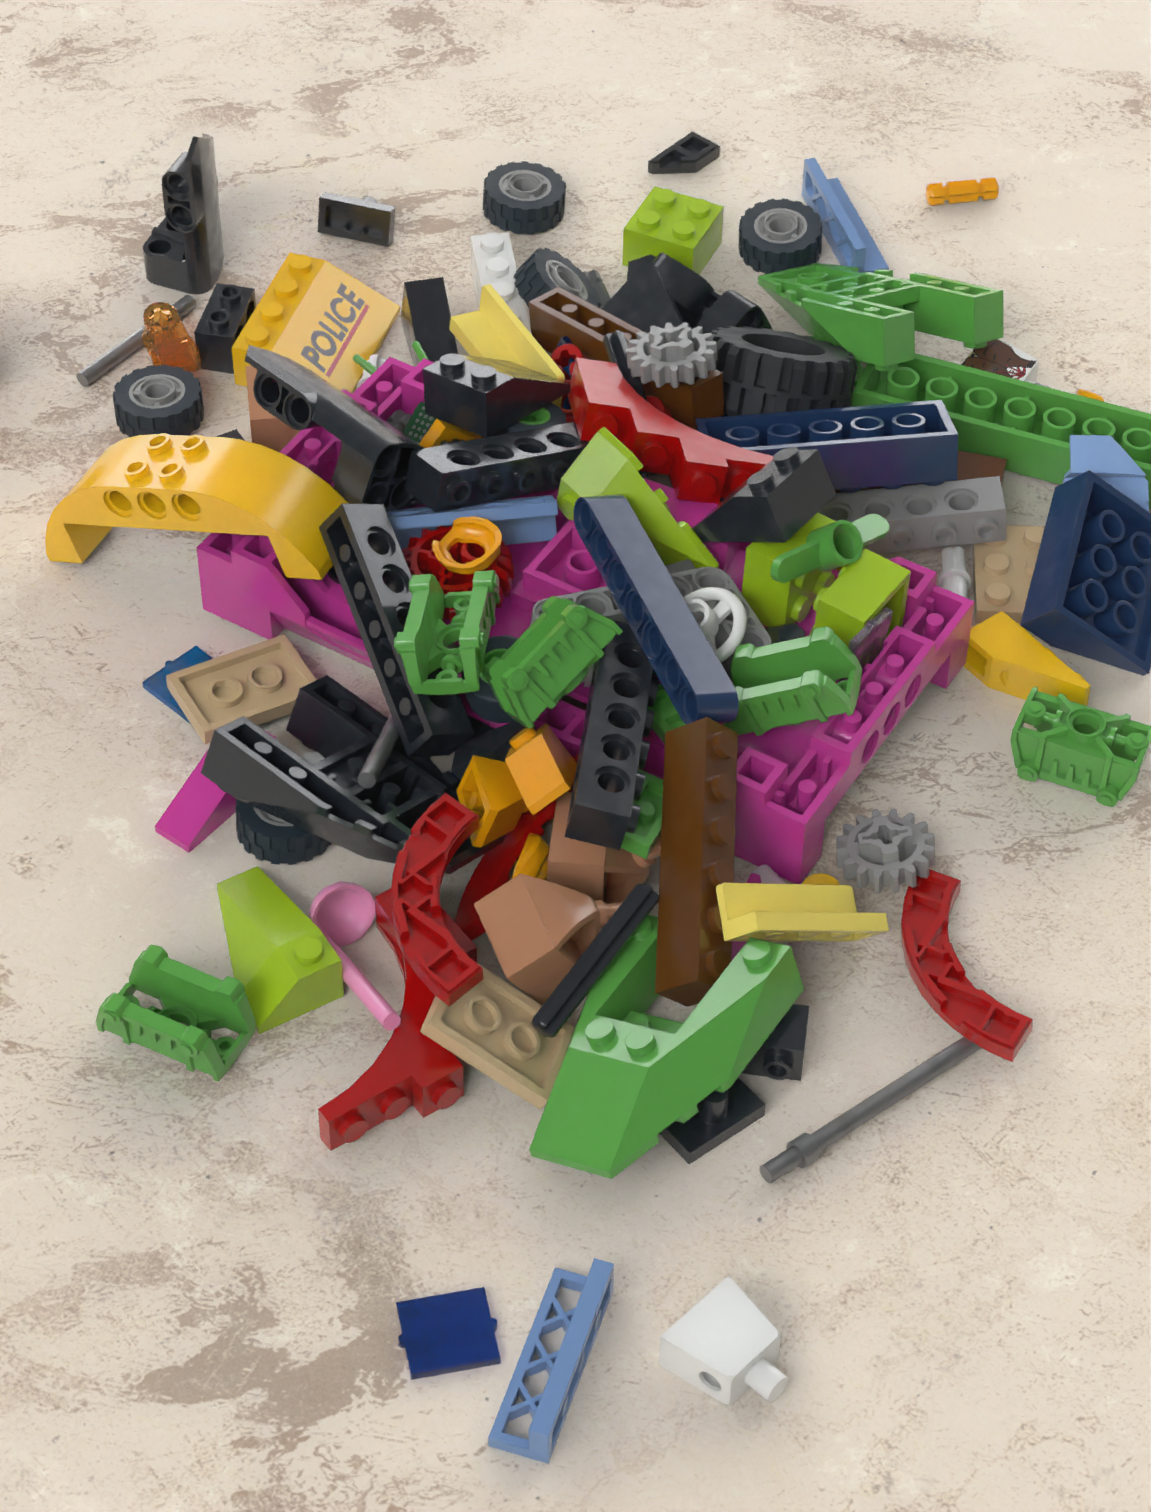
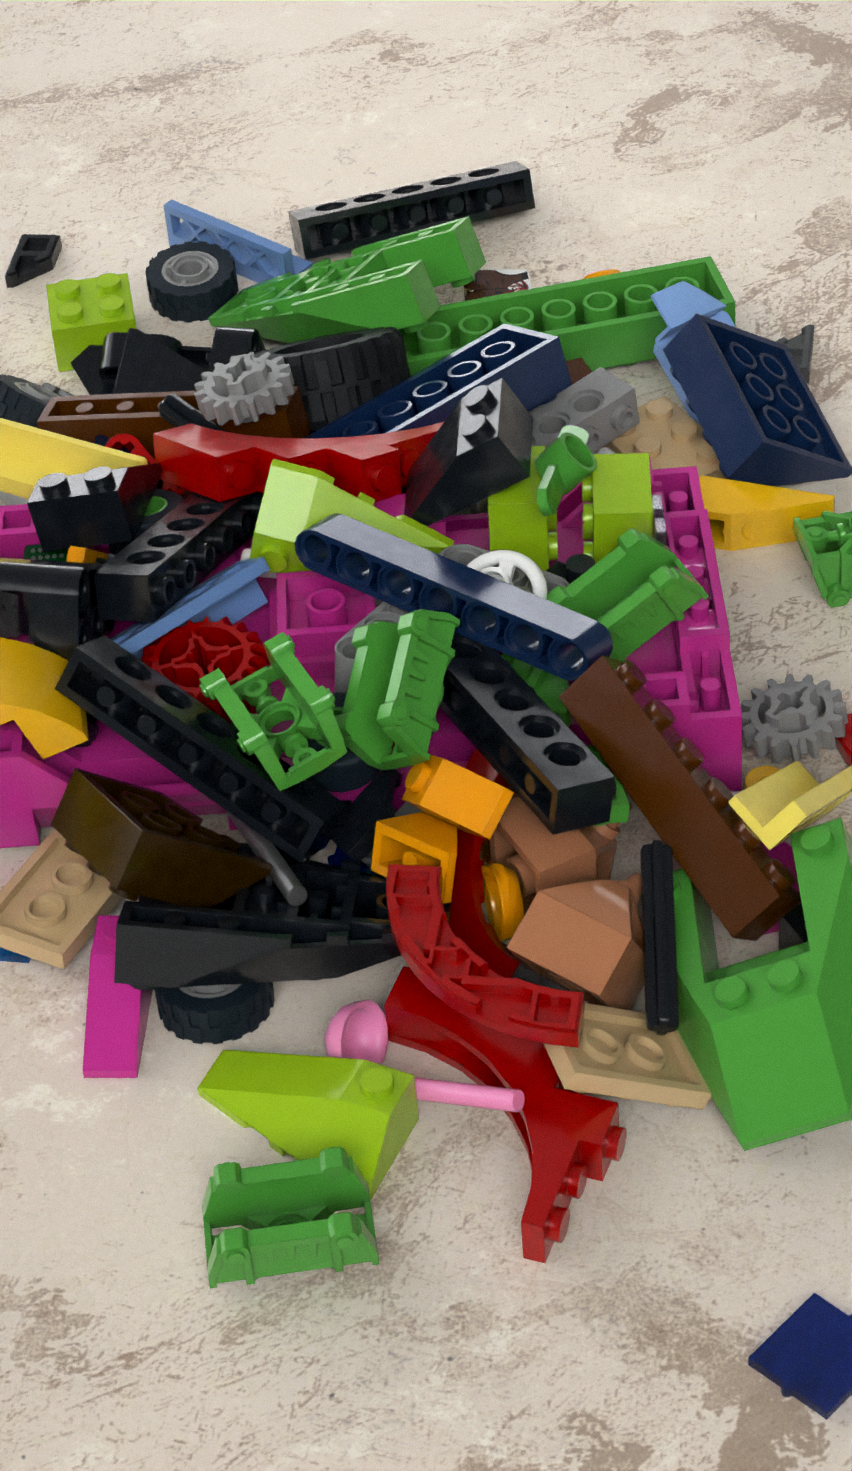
camera: 30 degrees left, 5 degrees down
(301, 684) = (151, 844): none -> dark brown wedge
(469, 530) = (213, 619): light orange piece -> none
(962, 191) = (314, 178): light orange axle -> none
(1004, 259) = (410, 208): none -> black brick

